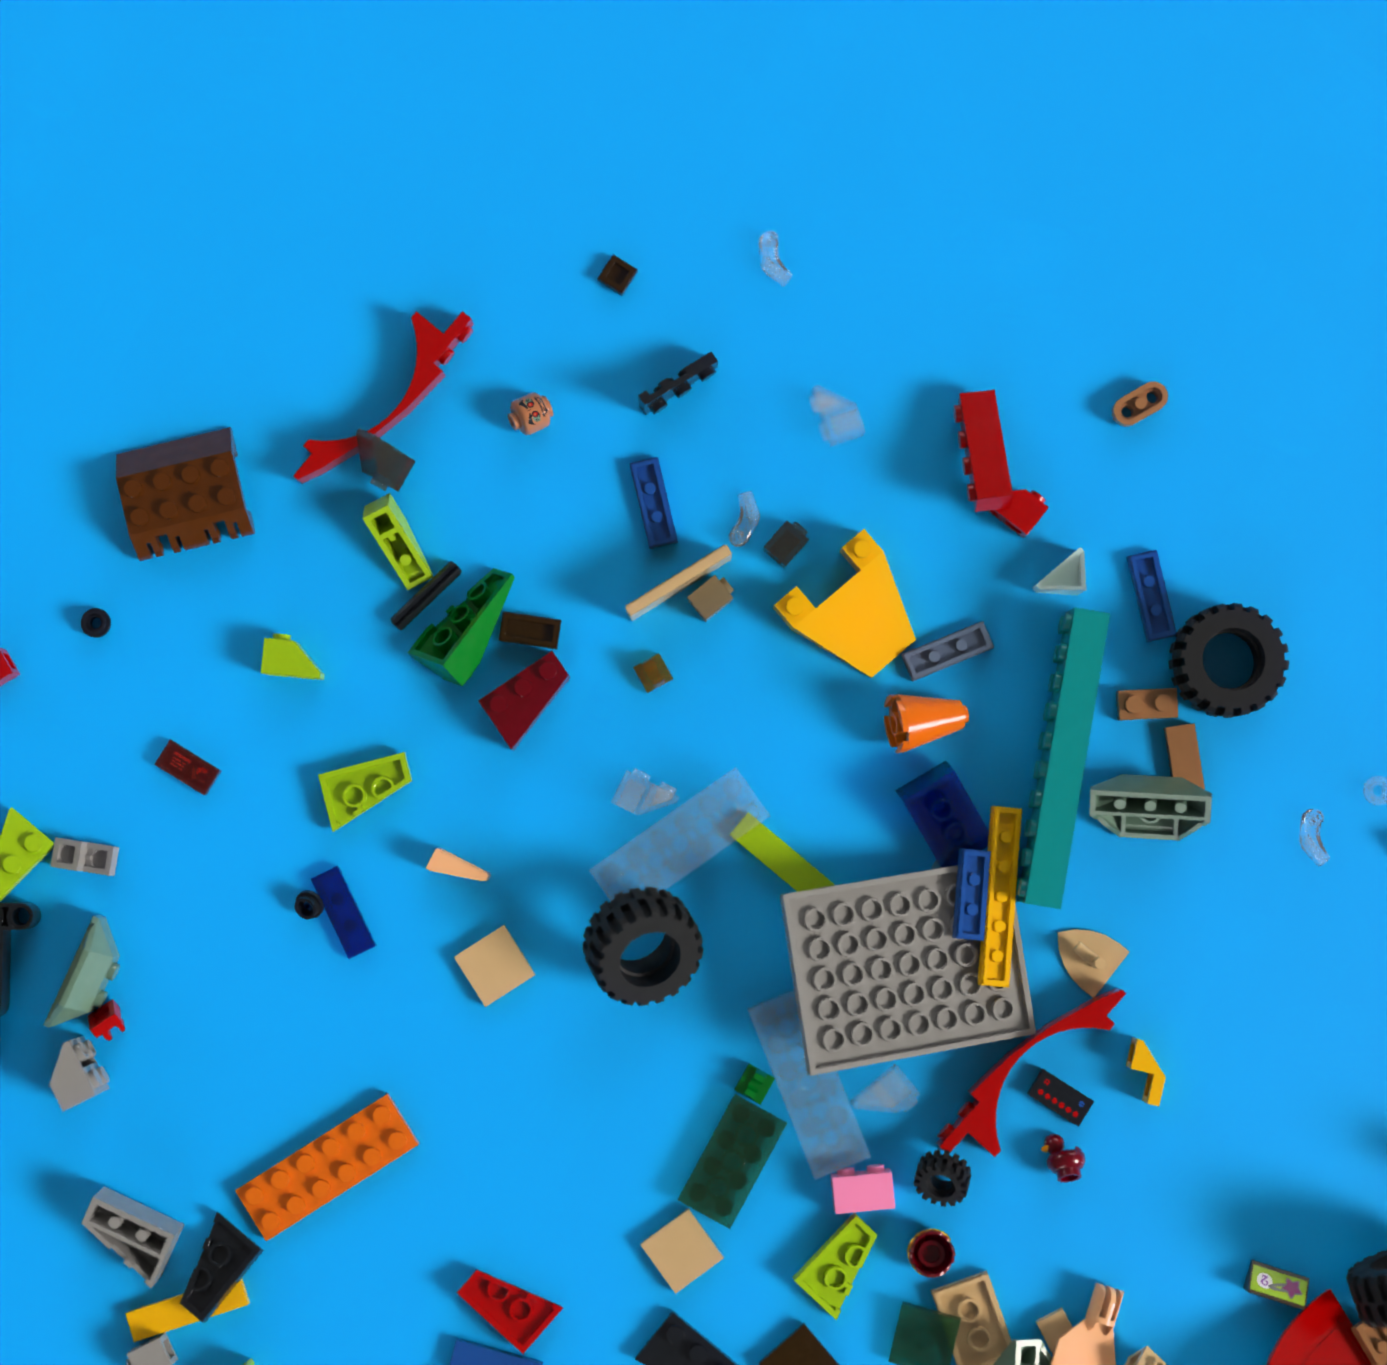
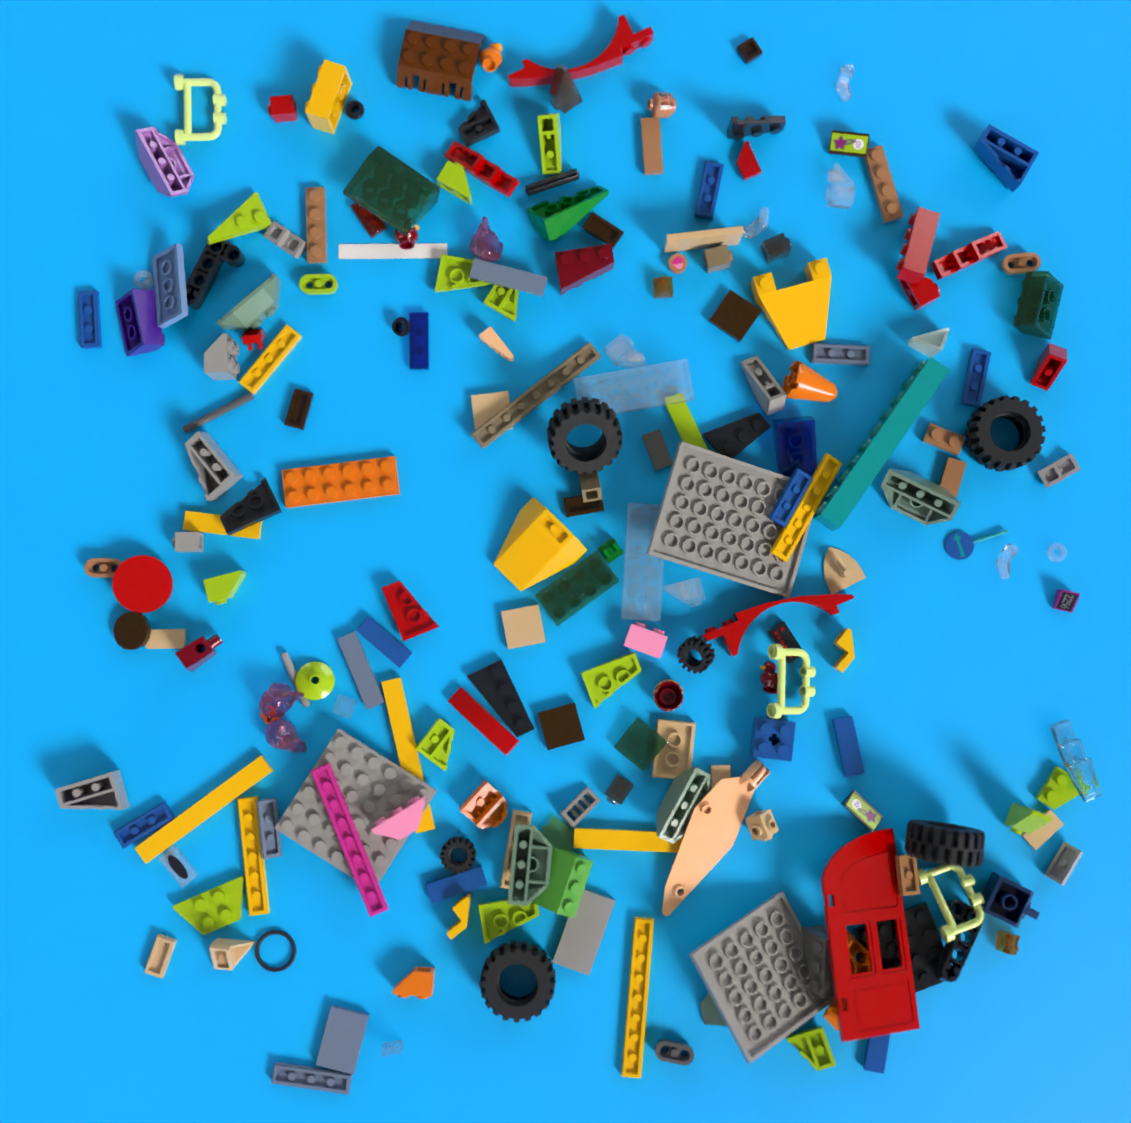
camera: 25 degrees right, 0 degrees up
(51, 626) = (328, 96): none -> yellow brick
(105, 1150) = (218, 412): none -> dark grey bar
(118, 814) = (316, 225): none -> medium nougat plate
(144, 1038) = (270, 359): none -> yellow tile
(163, 898) = (319, 284): none -> lime plate
(206, 720) = (392, 191): none -> clear green slope
(218, 1090) = (299, 409): none -> dark brown tile
(244, 799) = (391, 251): none -> white sticker
(256, 458) = (491, 57): none -> orange animal
(257, 771) = (407, 242): none -> dark red animal
(283, 563) = (478, 126): none -> black wing
(317, 624) = (481, 169): none -> red slope
(374, 729) = (486, 243): none -> hair
(428, 765) = (508, 277): none -> sand blue tile
(435, 792) = (503, 301): none -> lime wing
(543, 477) = (651, 146): none -> medium nougat tile
(546, 914) = (536, 395): none -> dark tan tile
(648, 1130) = (537, 547): none -> yellow wedge
(657, 629) = (677, 263): none -> nougat tile
(684, 1010) = (590, 486): none -> dark tan brick
(686, 1036) = (575, 507): none -> dark brown tile
(689, 438) = (747, 163): none -> red tile
(753, 909) = (657, 450): none -> dark grey tile
(773, 666) = (734, 316): none -> dark brown tile
(820, 346) = (849, 143): none -> slope
(856, 836) = (736, 436): none -> black wing
(859, 748) = (764, 386): none -> light grey slope
(894, 379) = (883, 184): none -> medium nougat plate
(1048, 263) = (1005, 156): none -> blue wedge
(1056, 1123) = (777, 652): none -> yellowish green bar
(1061, 426) = (968, 255): none -> red slope
(1099, 1224) = (783, 731): none -> blue hinge
(1191, 452) = (1038, 304): none -> clear green slope
(1215, 1202) = (848, 746): none -> blue tile
(1241, 843) = (961, 546): none -> blue piece
(1246, 533) = (1049, 366): none -> red slope
(1327, 673) = (1058, 470): none -> light grey slope

